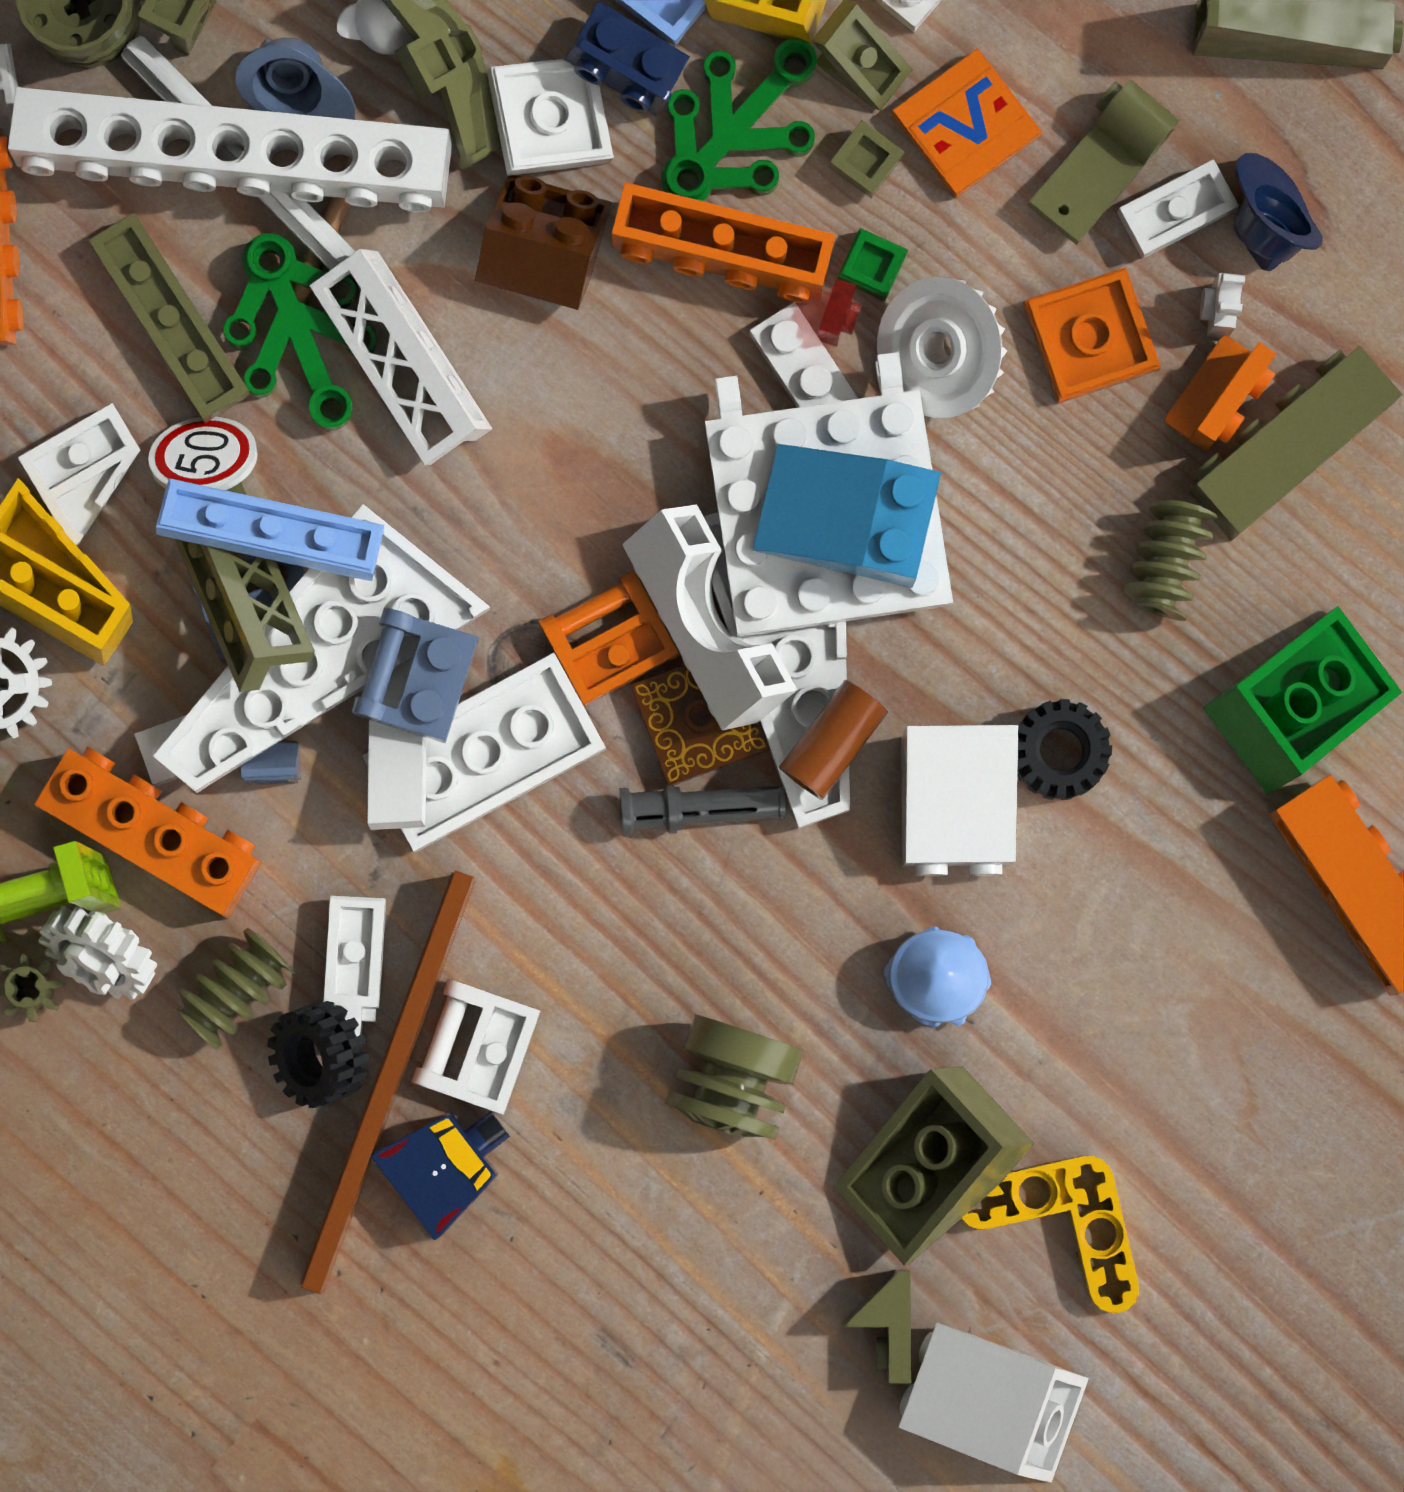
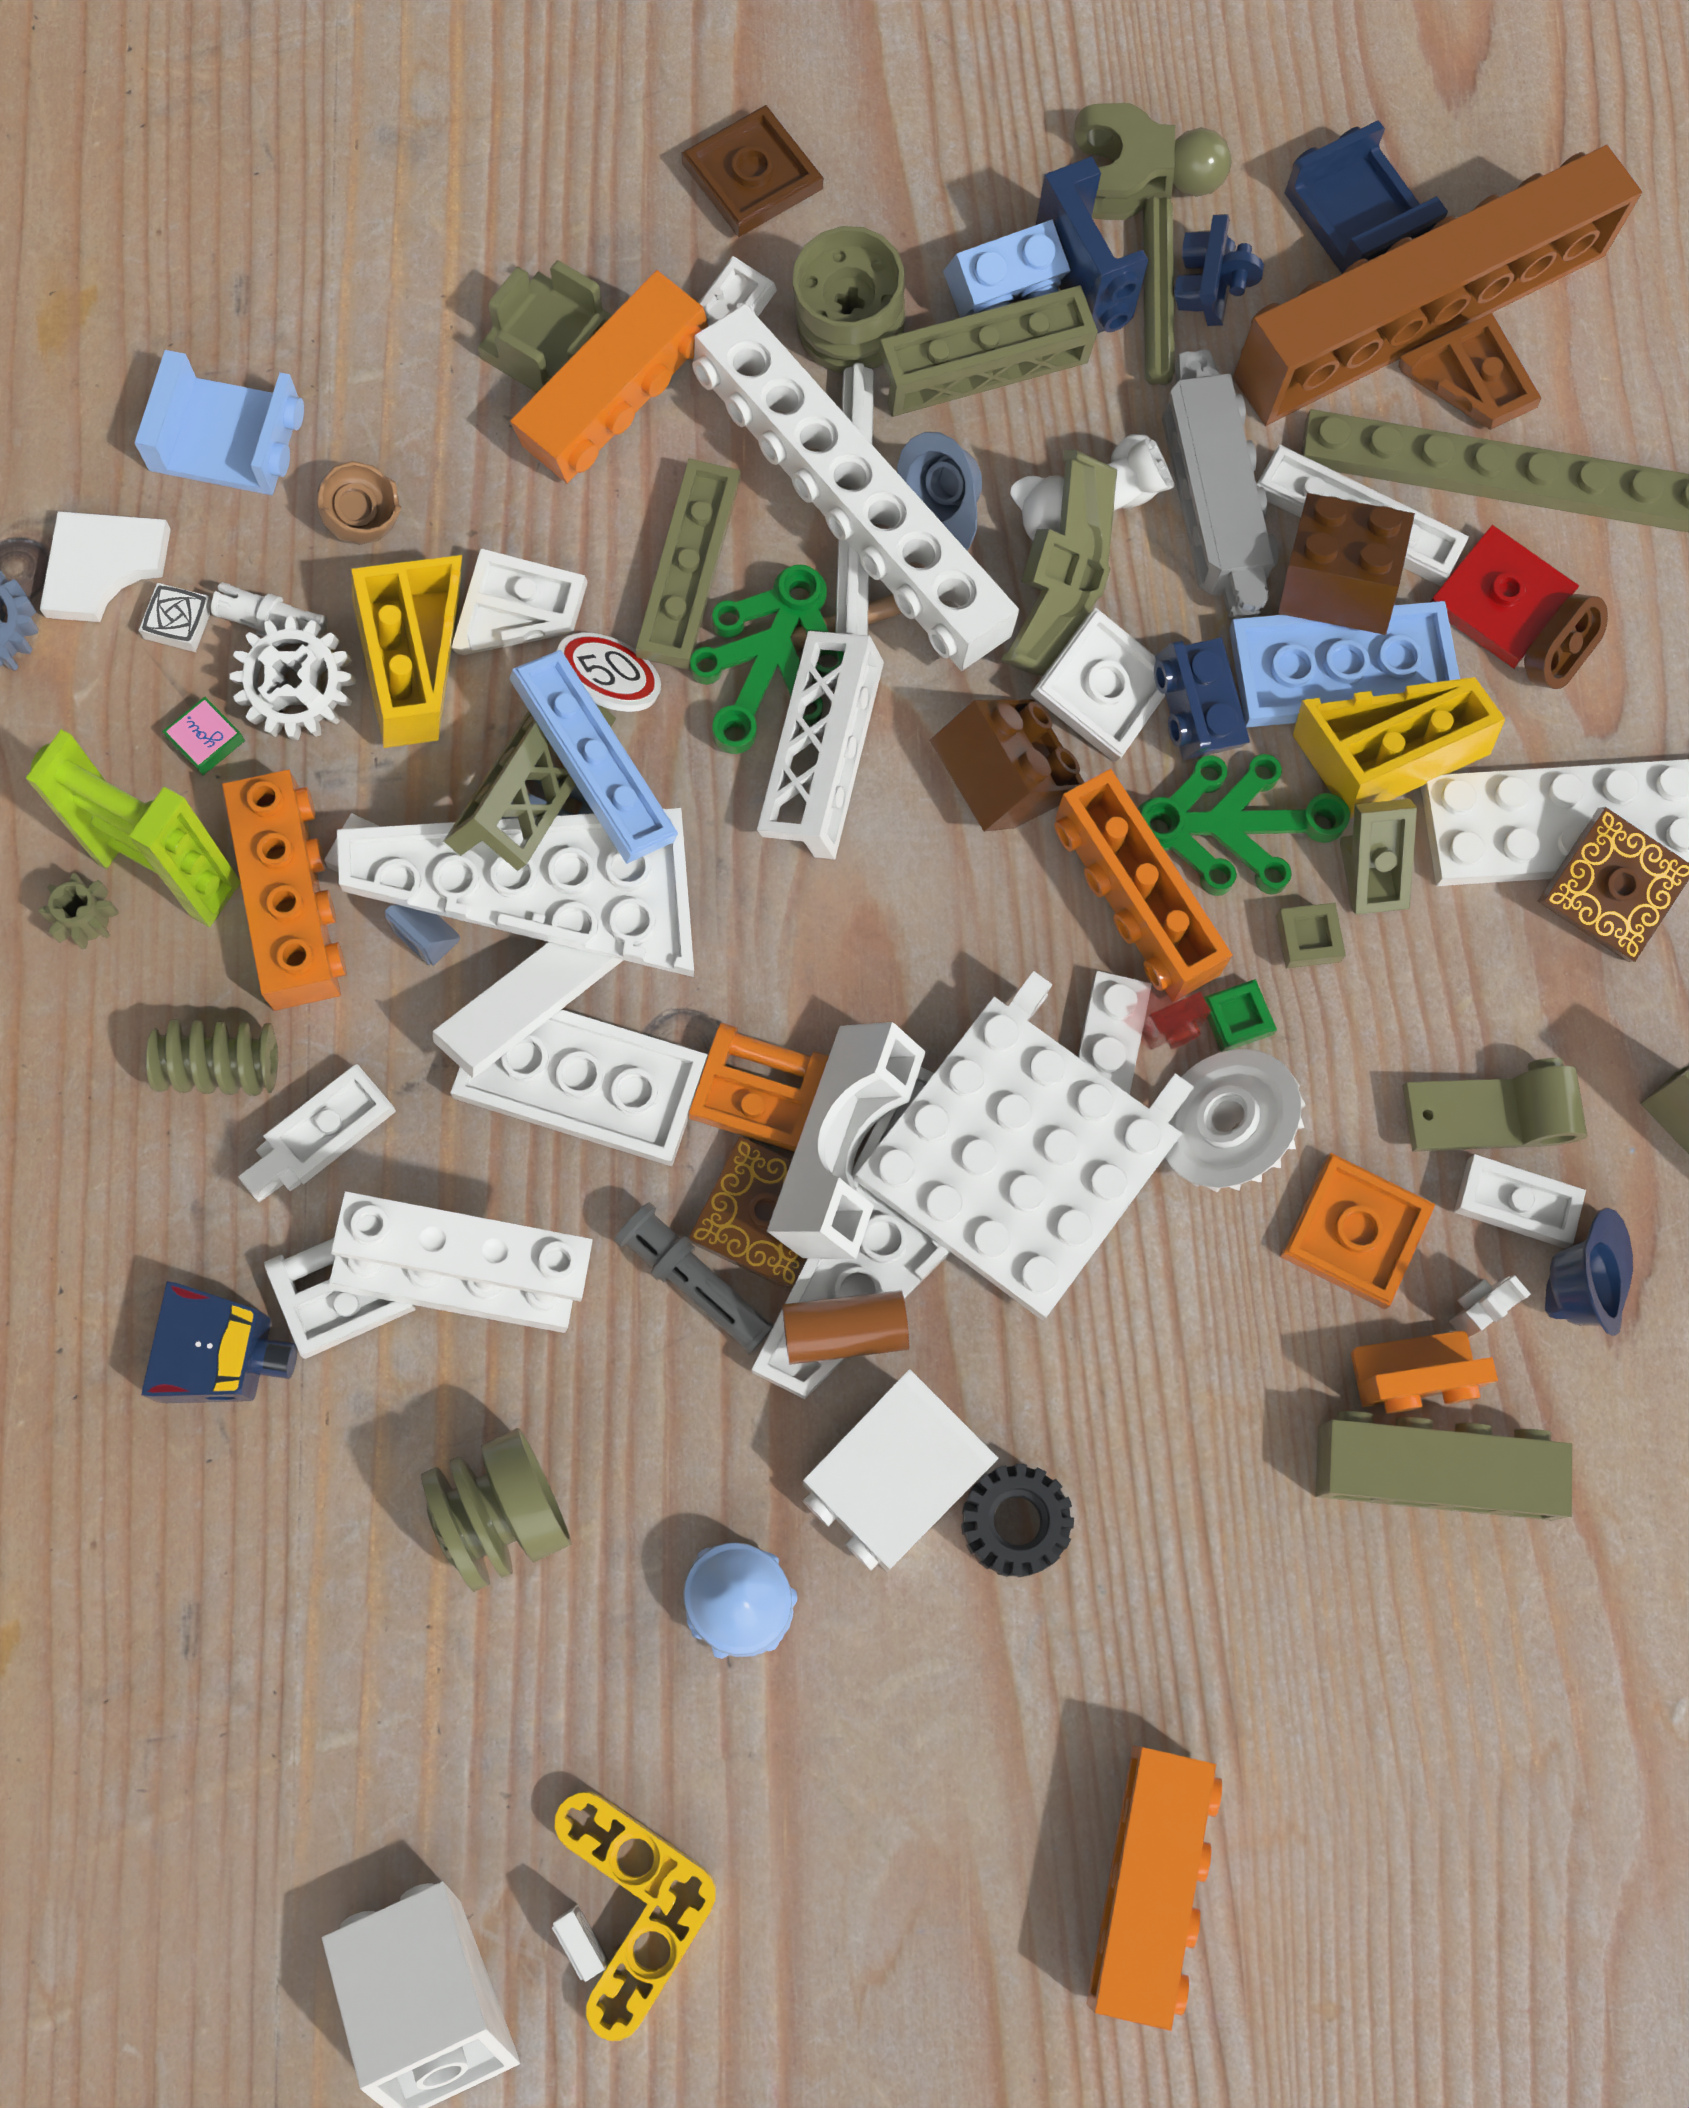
camera: 45 degrees right, 10 degrees down
(97, 952) = (145, 929): white gear -> none
(338, 1048) = (216, 1166): black tyre -> none
(387, 1082) = (236, 1246): dark orange tile -> none
(433, 680) = (593, 978): sand blue plate -> none
(551, 952) = (458, 1262): none -> white fence
(847, 513) = (1033, 1166): dark azure slope -> none
(889, 1308) = (419, 1829): olive slope -> none
(932, 1162) = (579, 1745): olive slope -> none
(966, 123) = (1413, 984): orange tile -> none
(1054, 1273) = (580, 1943): none -> white tile
(1169, 557) = (1252, 1455): olive piece -> none
(1302, 701) = (1250, 1682): green slope -> none

